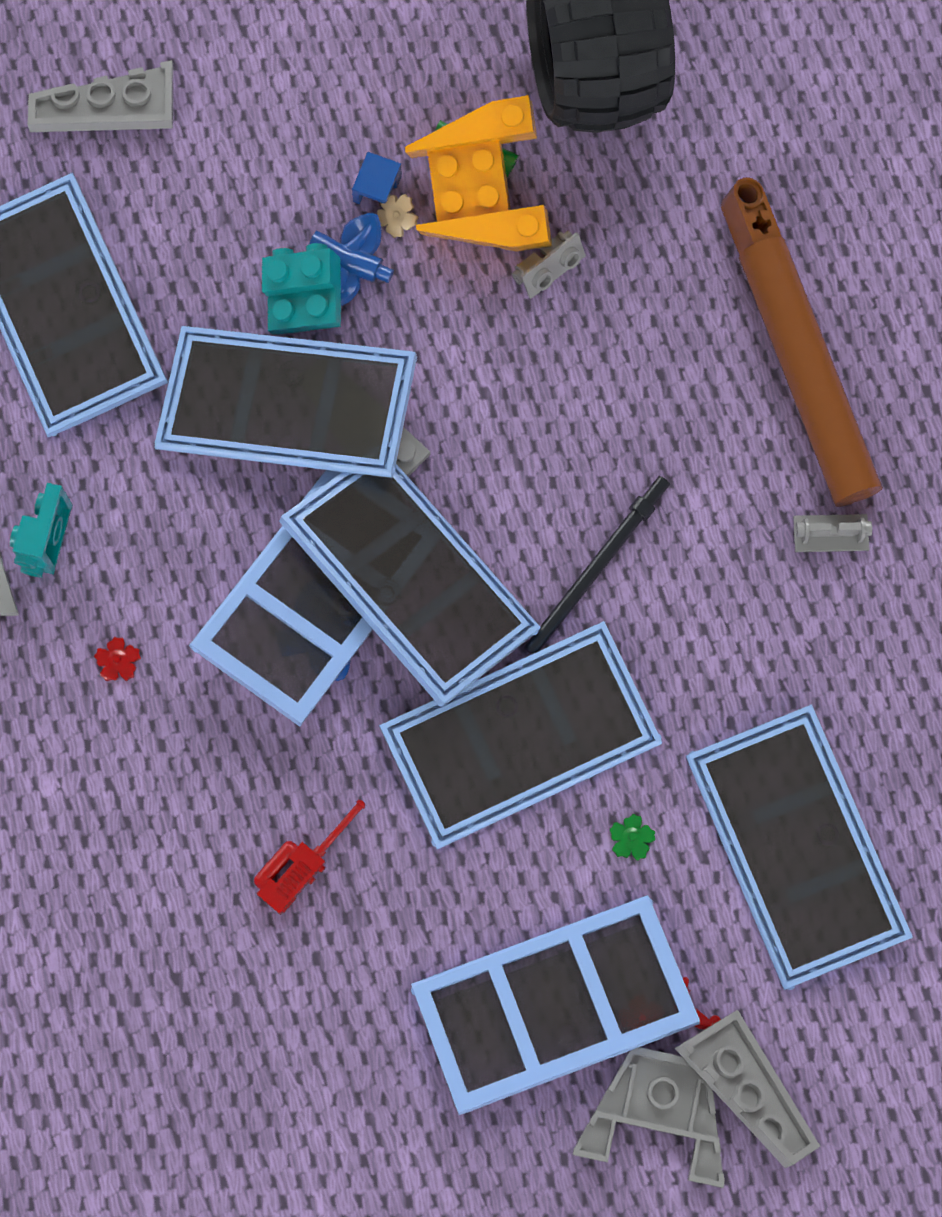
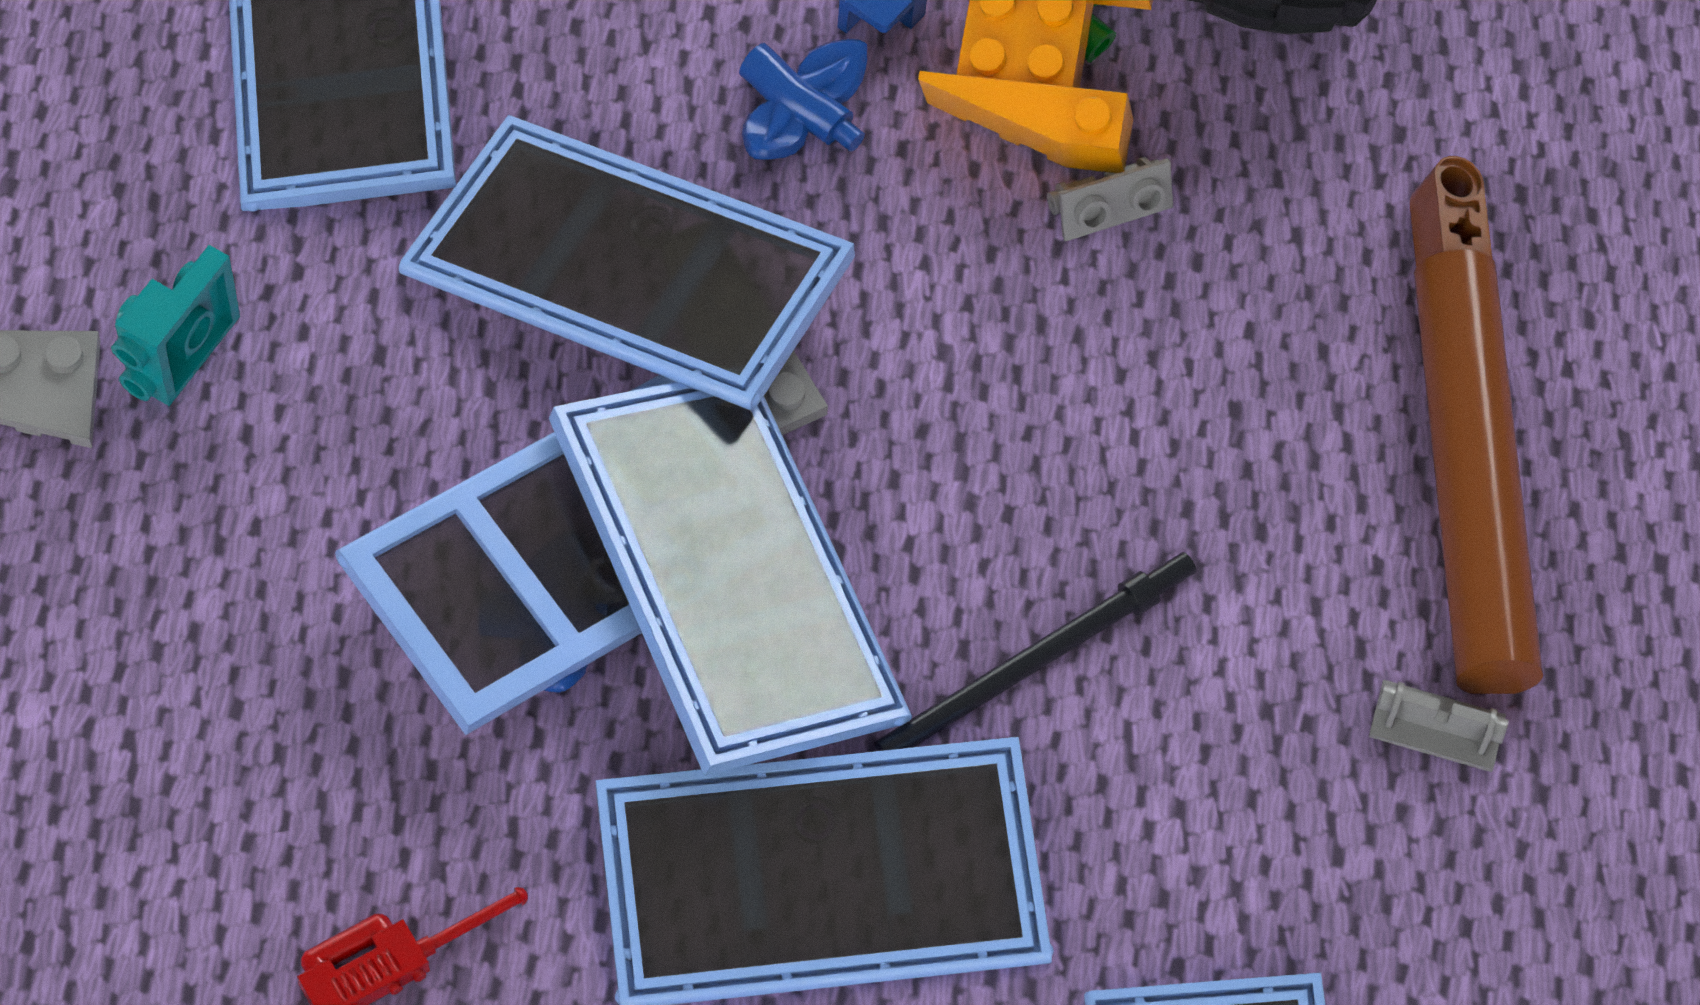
camera: 15 degrees right, 15 degrees down
(117, 660) = (217, 561): red plant -> none
(302, 289) = (713, 114): teal plate -> none
(397, 215) = (897, 60): tan plant -> none

